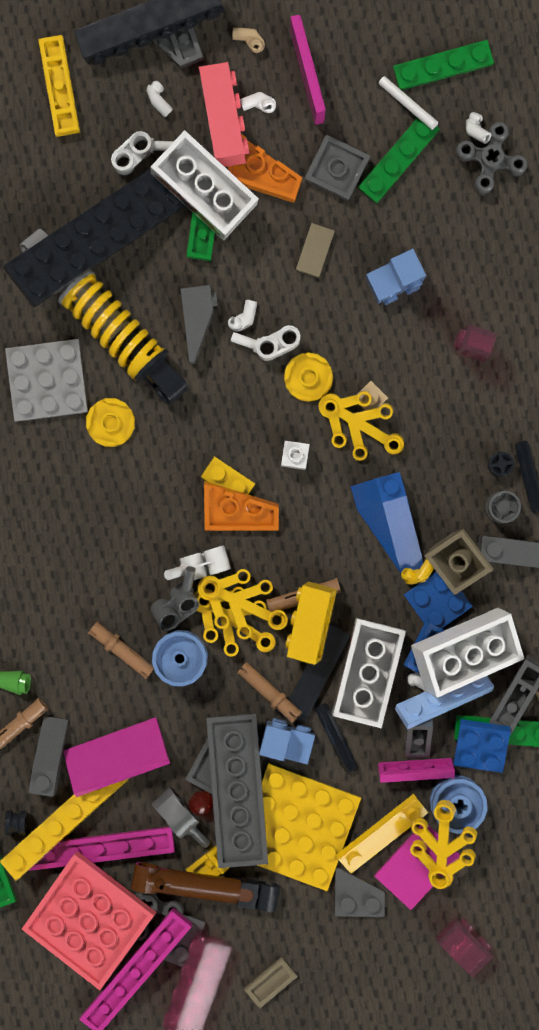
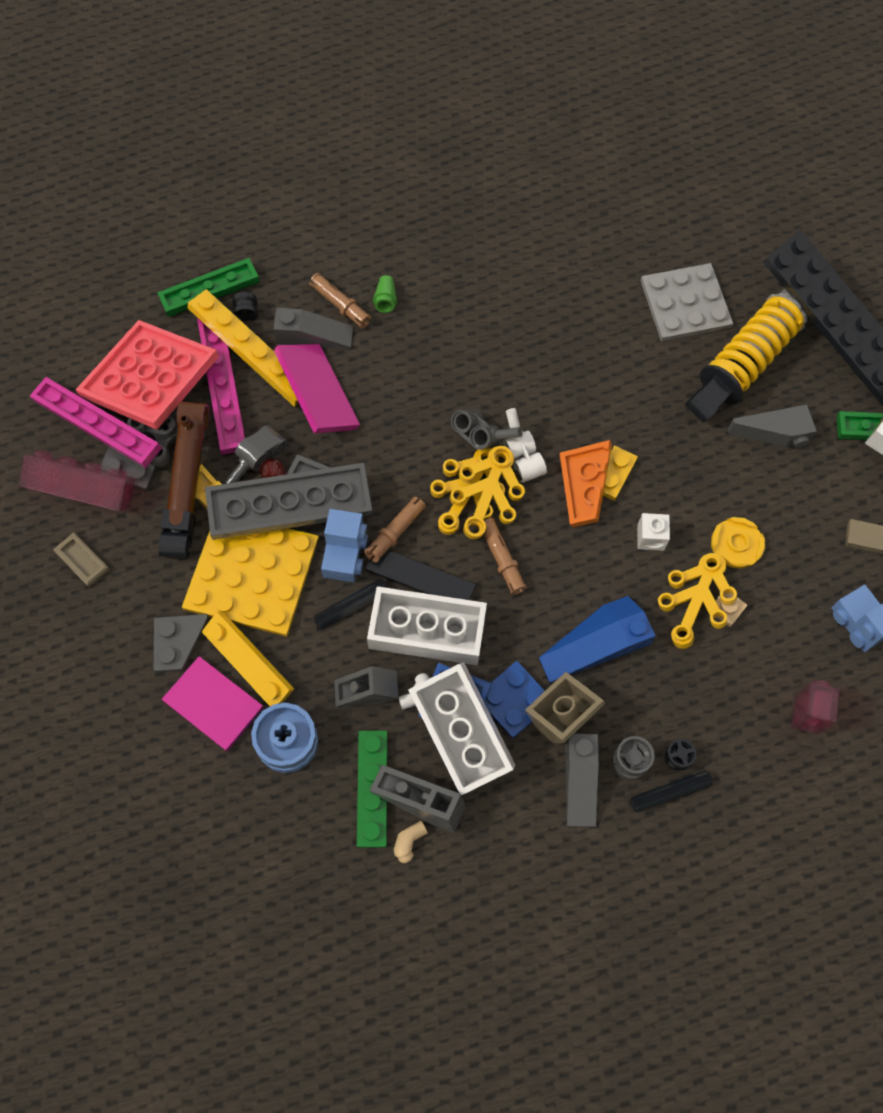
camera: 80 degrees right, 20 degrees down
(117, 425) = (657, 367): yellow tile -> none
(121, 650) = (431, 379): medium nougat pin -> none
(165, 658) = (424, 436): medium blue wheel -> none
(245, 319) = (785, 476): white arm -> none
(275, 339) = (770, 505): white beam -> none
(310, 622) = (476, 558): yellow brick -> none
(416, 770) = (321, 690): dark pink tile -> none
(418, 575) = (539, 672): yellow arm -> none
(426, 706) = (394, 687): light blue plate -> none
(441, 847) = (202, 723): yellow plant -> none
(464, 946) = (120, 762): clear pink brick -> none
(481, 745) = (354, 759): blue plate -> none

